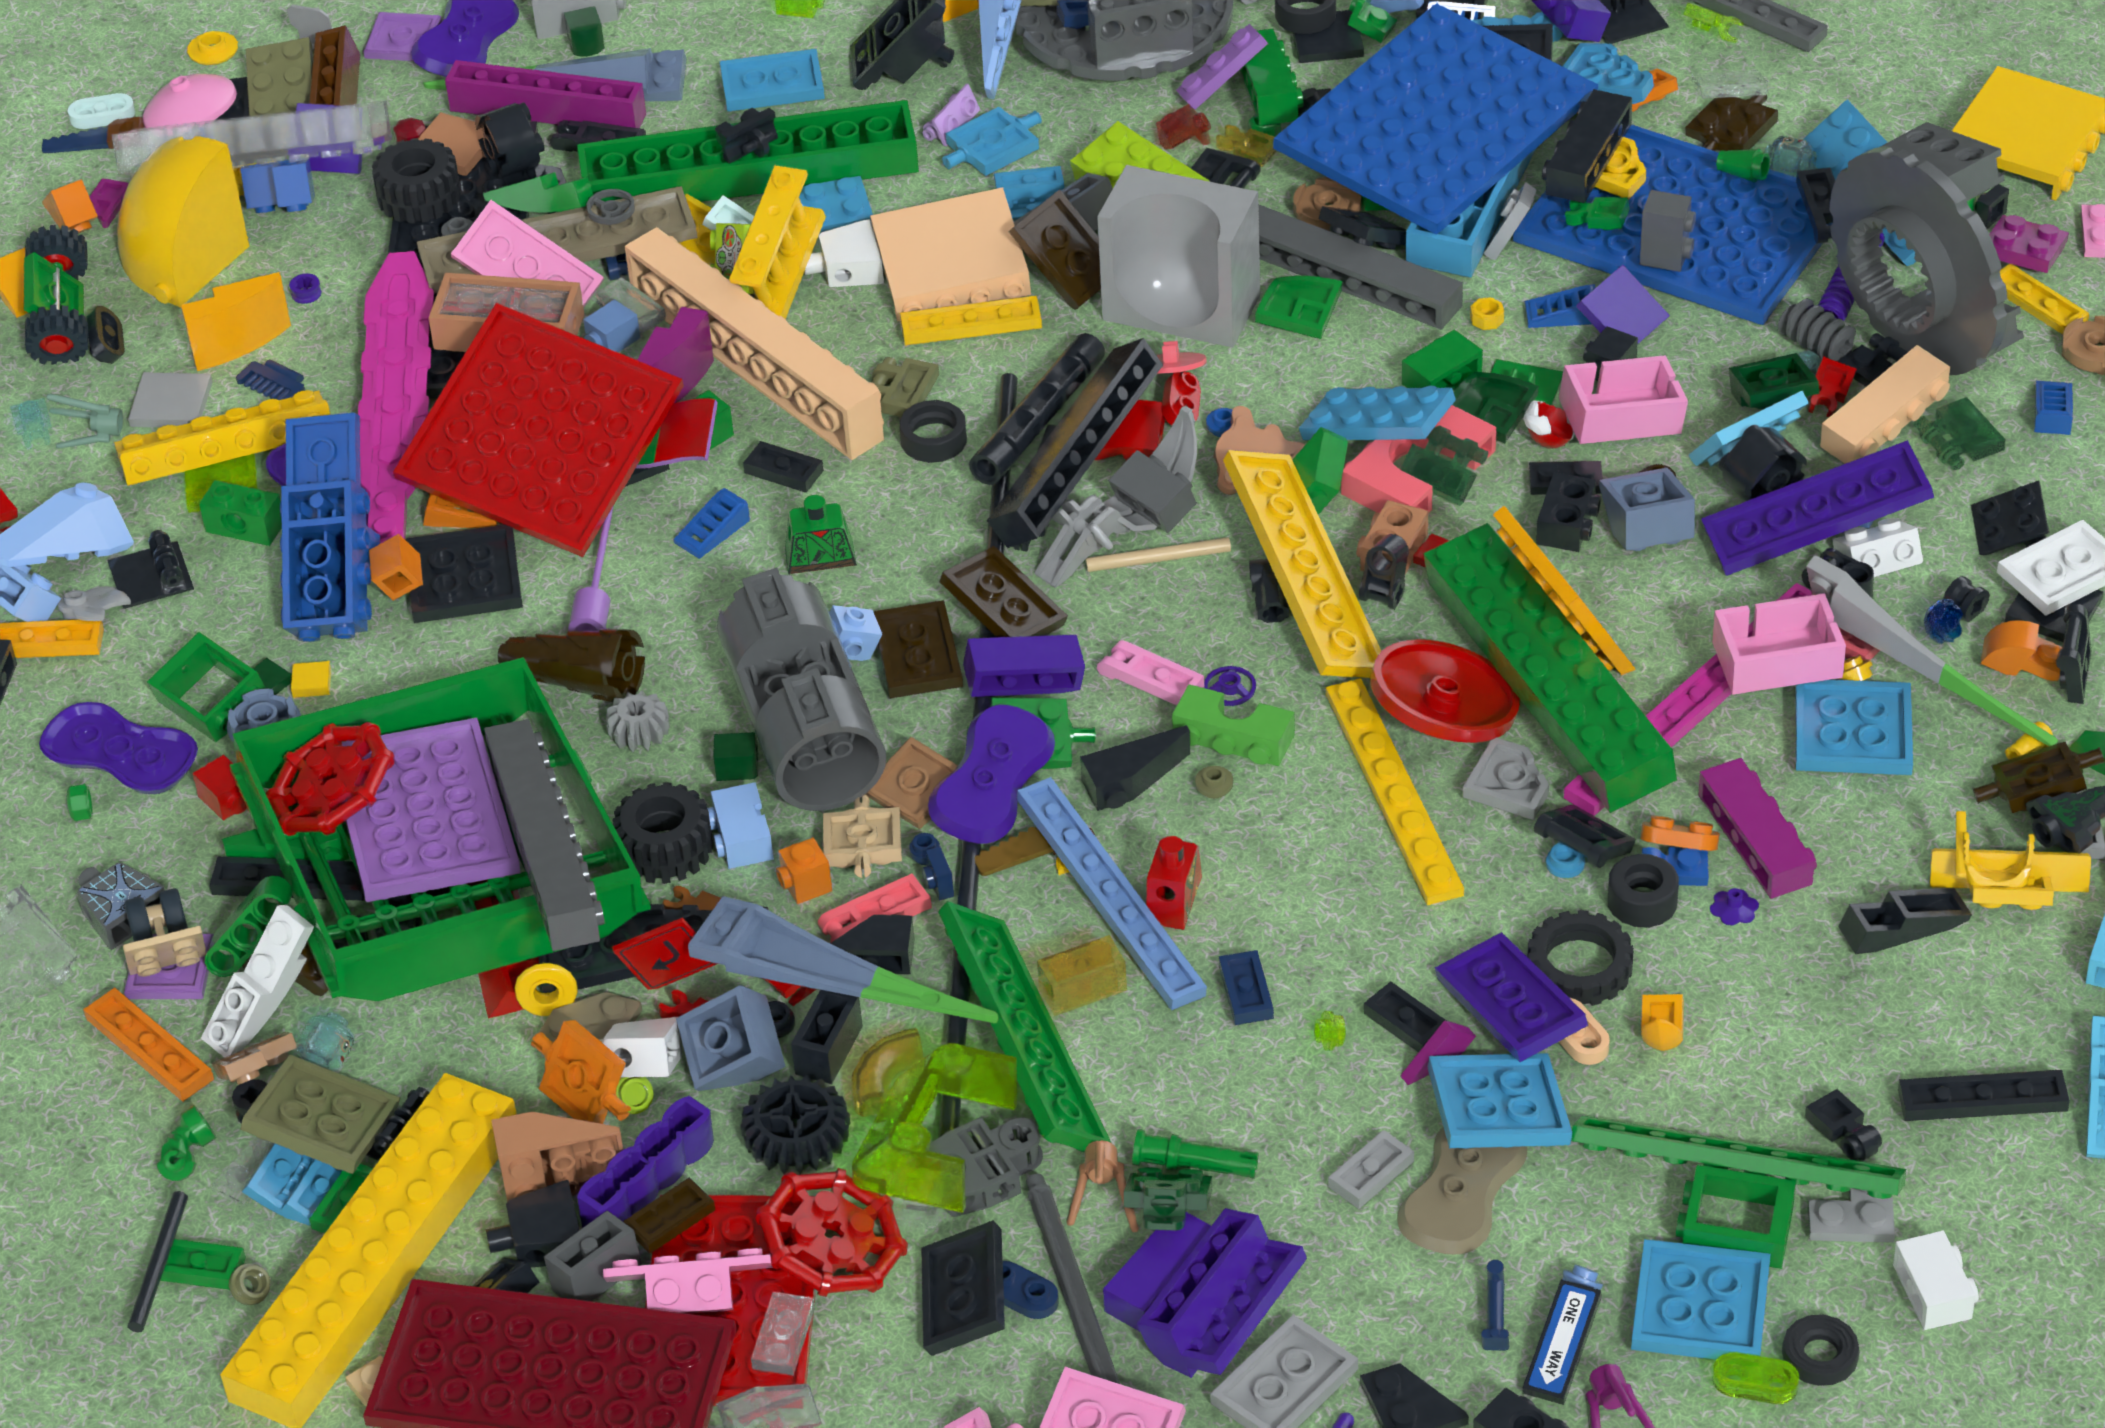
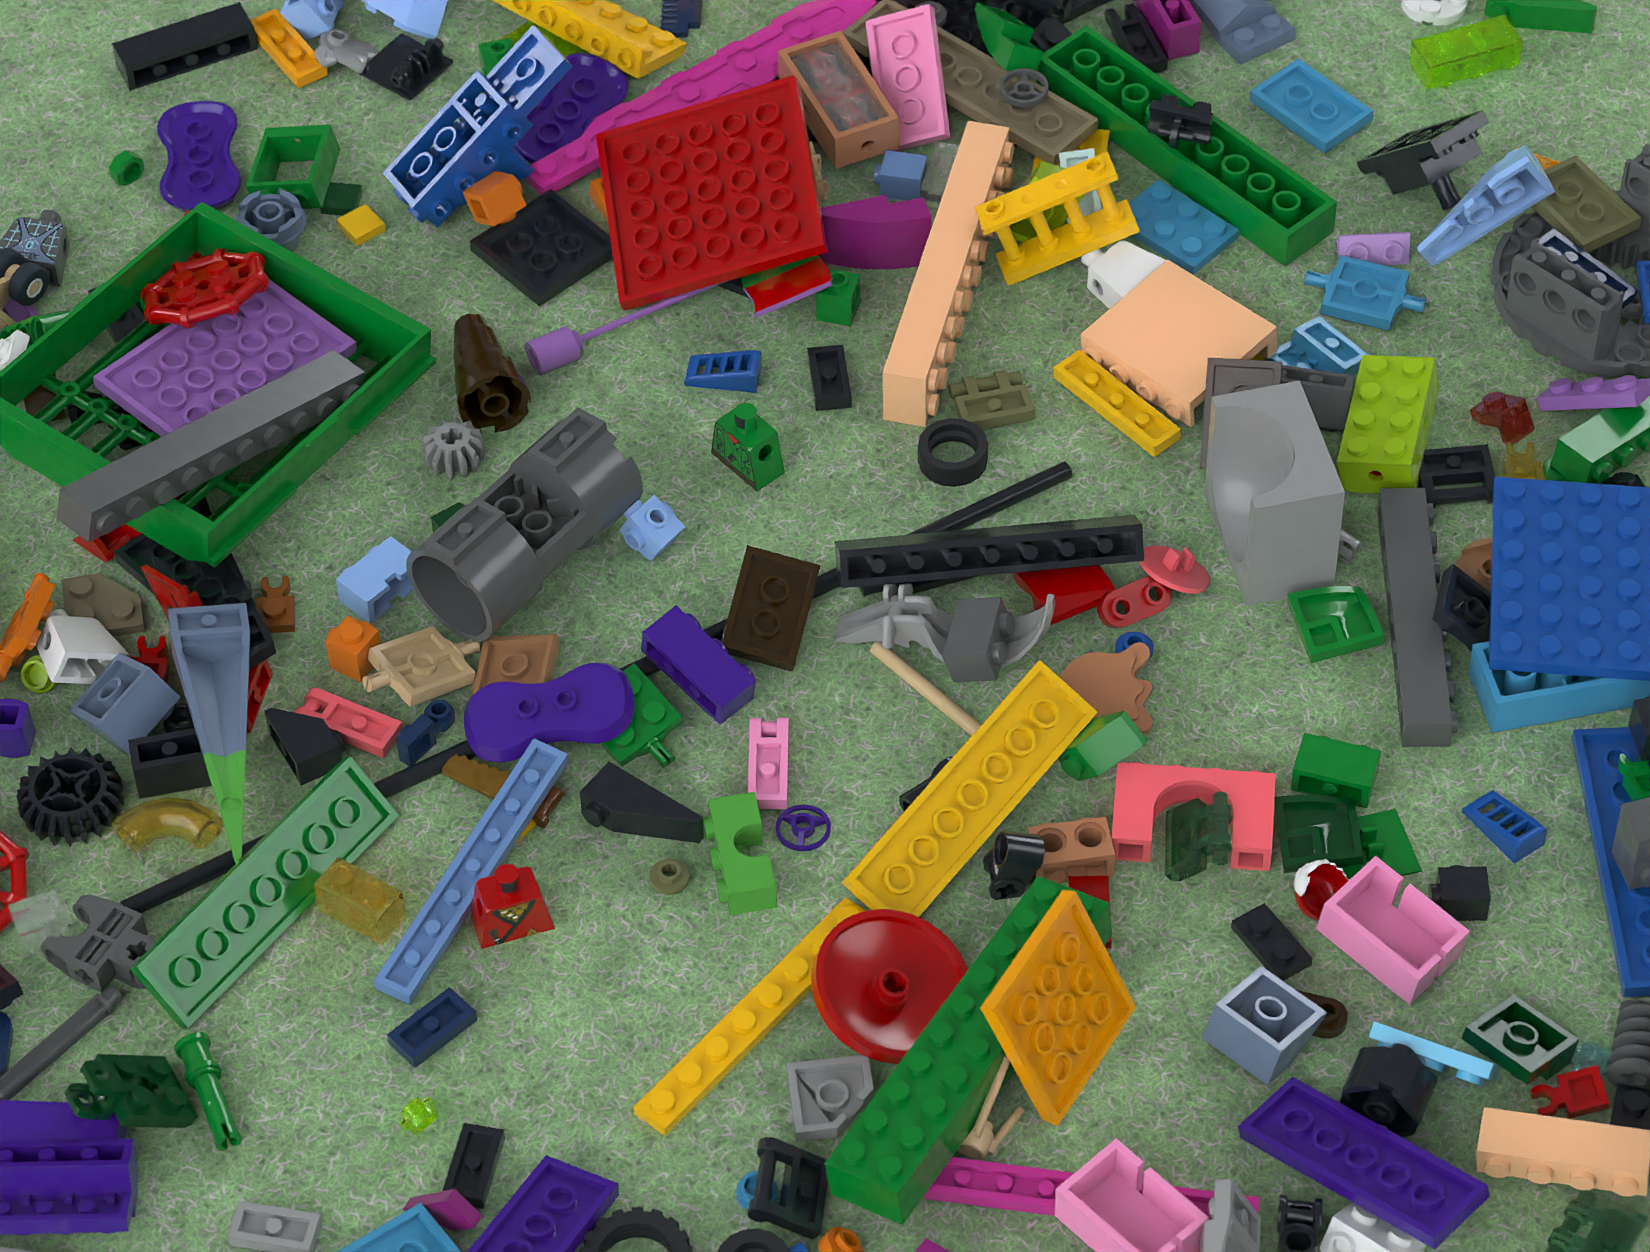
camera: 55 degrees right, 5 degrees up
(543, 1003) = (107, 556): yellow piece -> none
(668, 852) = (327, 510): black tyre -> none
(896, 1148) = (93, 864): clear neon green windscreen -> none
(918, 649) = (683, 574): dark brown plate -> none
(1036, 409) = (1026, 504): black piece -> none
(1100, 1167) = (155, 1029): nougat plant -> none
(1379, 412) = (1216, 751): dark azure plate -> none
(1487, 313) = (1446, 769): yellow tile -> none
(1514, 211) = (1586, 715): light grey wing -> none
(1567, 512) = (1211, 958): black brick -> none
(1623, 305) = (1530, 870): dark purple tile -> none

